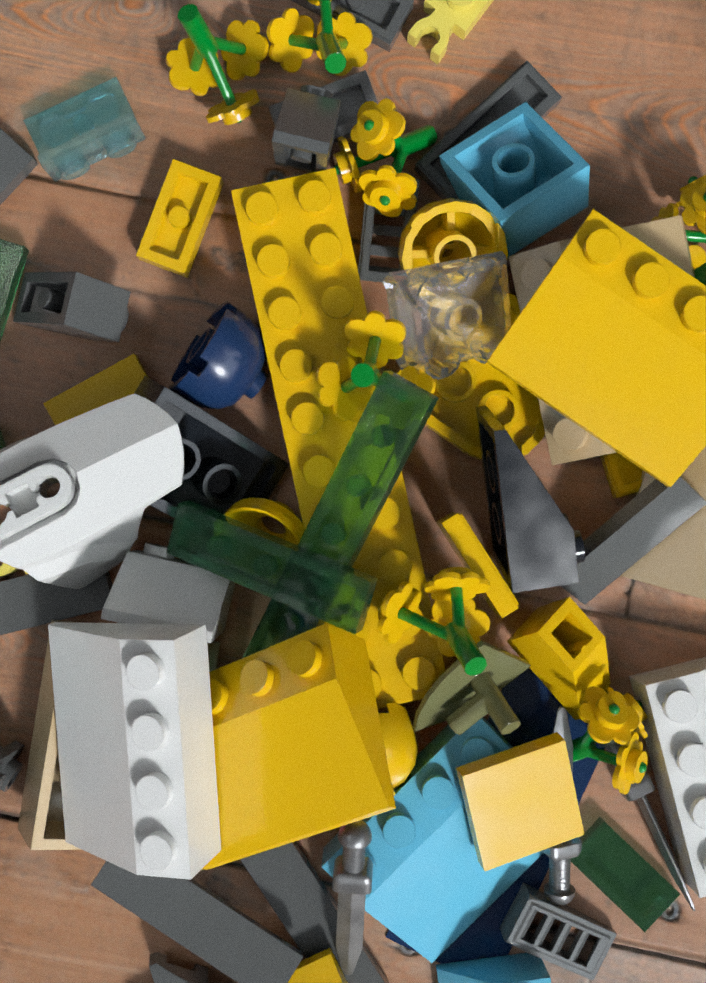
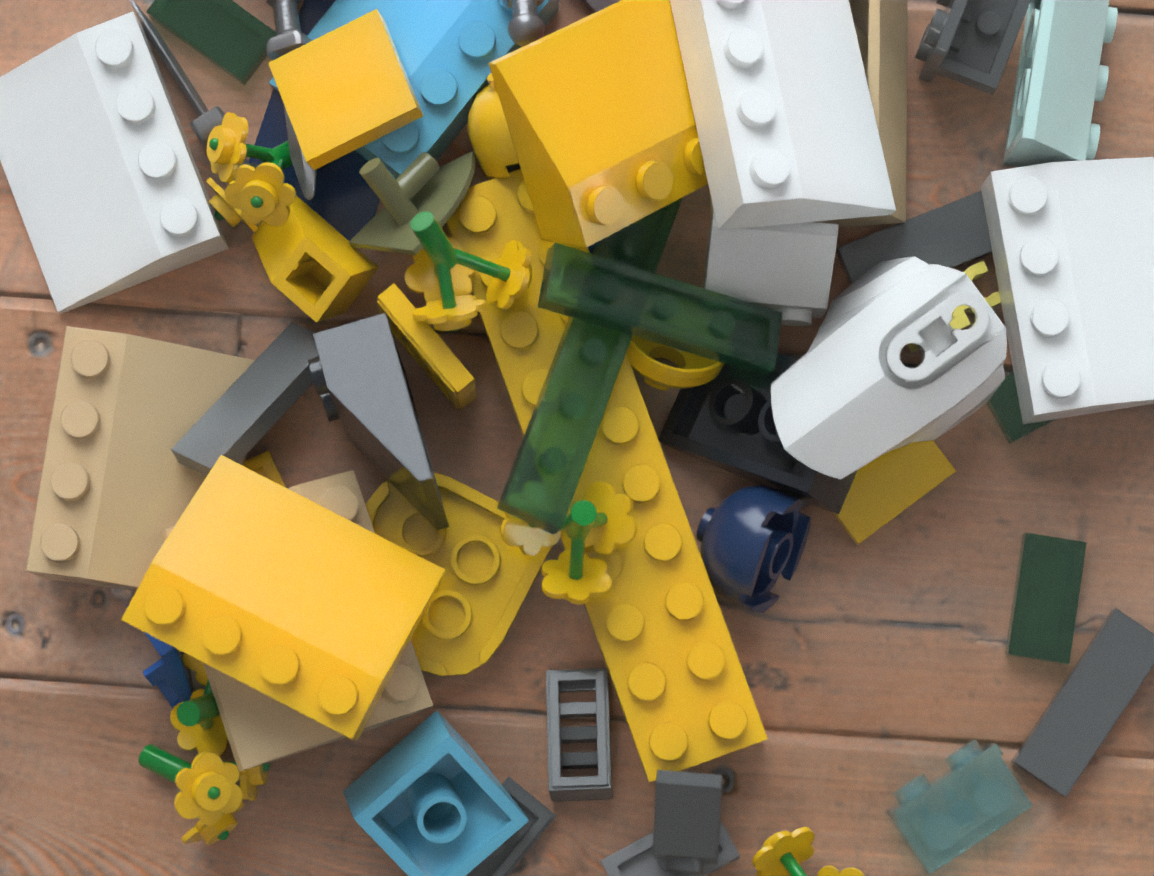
camera: 170 degrees right, 5 degrees down
(72, 305) = (939, 587): dark grey slope -> none
(180, 218) = (827, 711): yellow plate -> none
(378, 137) = (605, 824): yellow plant -> none
(450, 311) = (492, 625): clear slope -> none
(453, 220) = (500, 700): yellow cylinder -> none

